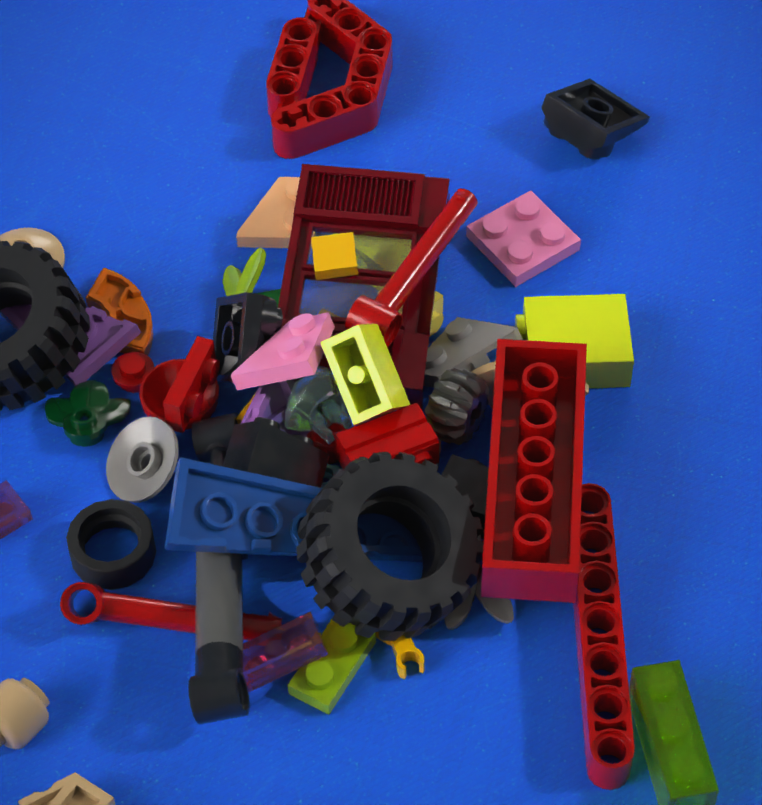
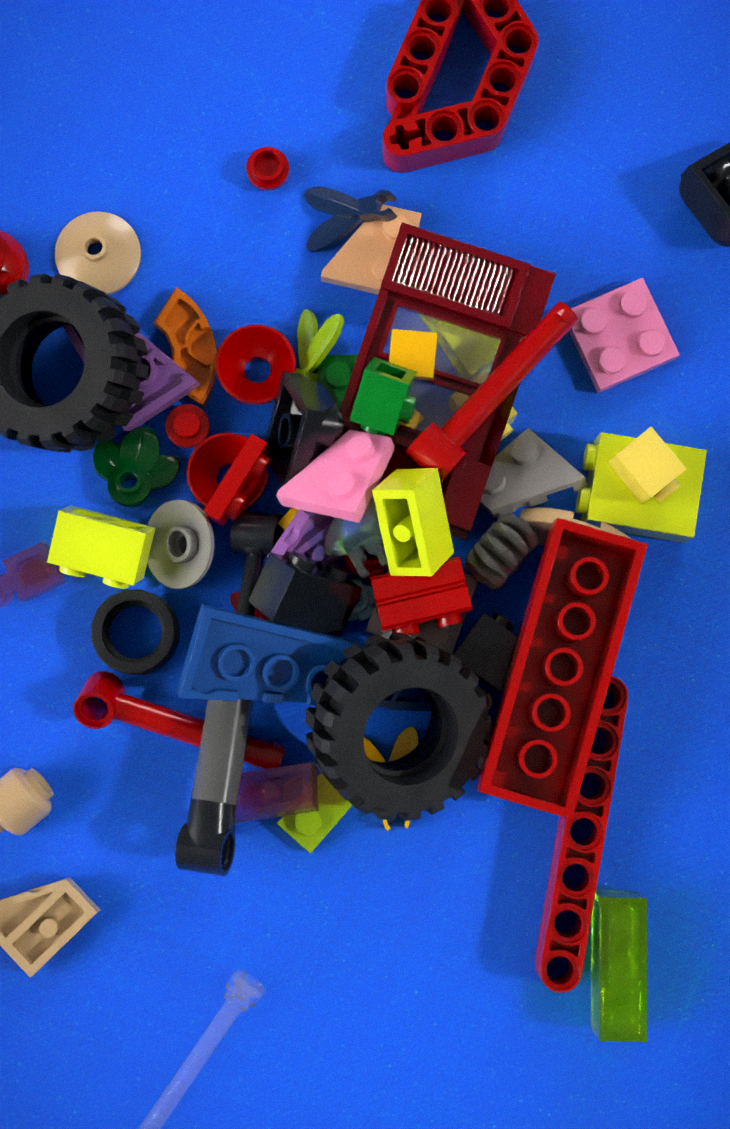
camera: 10 degrees right, 30 degrees up
(64, 472) = (100, 546): none -> neon yellow brick
(171, 169) = (267, 168): none -> red plate
(182, 297) = (244, 346): none -> red piece
(250, 188) = (347, 214): none -> dark blue piece
(315, 283) = (384, 397): none -> green brick
(572, 305) = (648, 467): none -> light yellow brick

